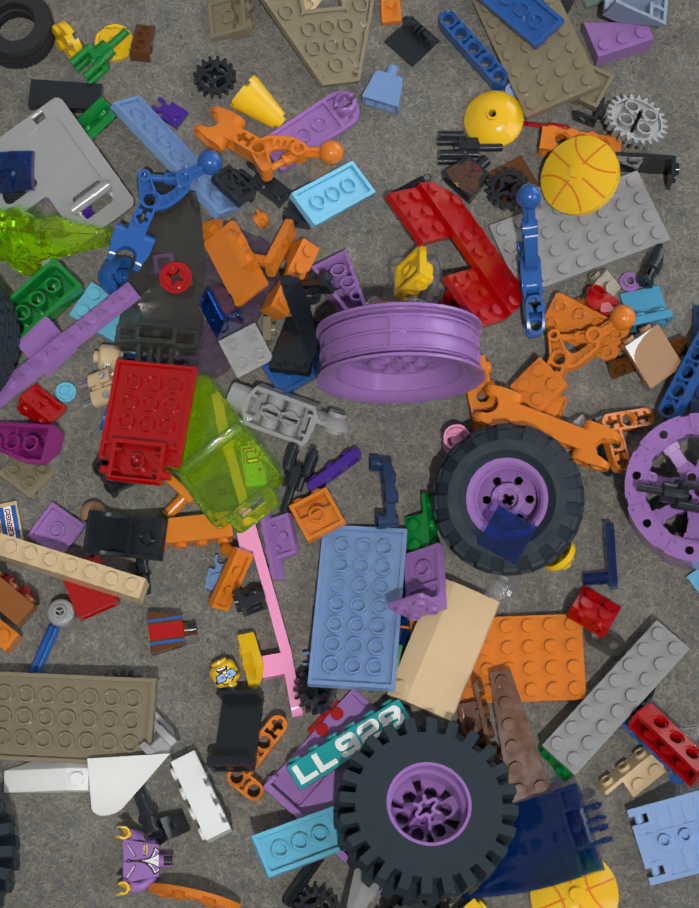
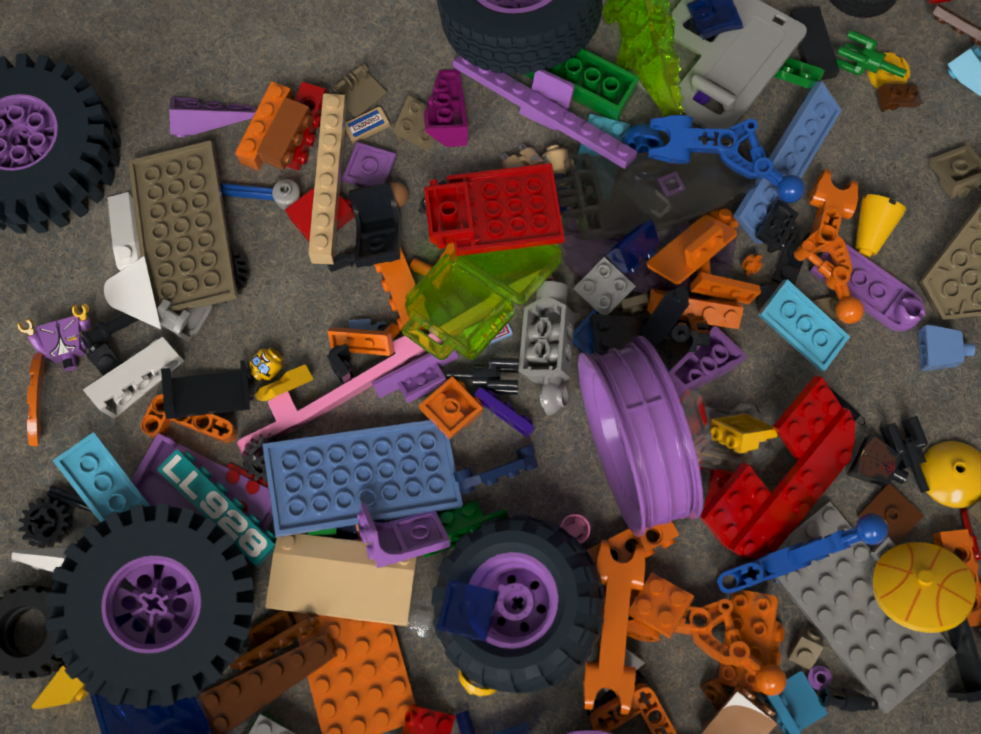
camera: 75 degrees right, 0 degrees up
(40, 406) = (488, 116): red bracket -> none
(65, 39) = (870, 24): yellow plate -> none
(65, 392) = (510, 134): medium azure plate -> none
(168, 631) = (295, 298): torso -> none
(171, 114) = (833, 147): dark purple plate -> none
(173, 269) = (666, 191): red gear -> none
(220, 83) = (889, 174): black gear -> none
(501, 192) = (871, 504): black gear -> none
(599, 300) = (784, 649): red plate -> none

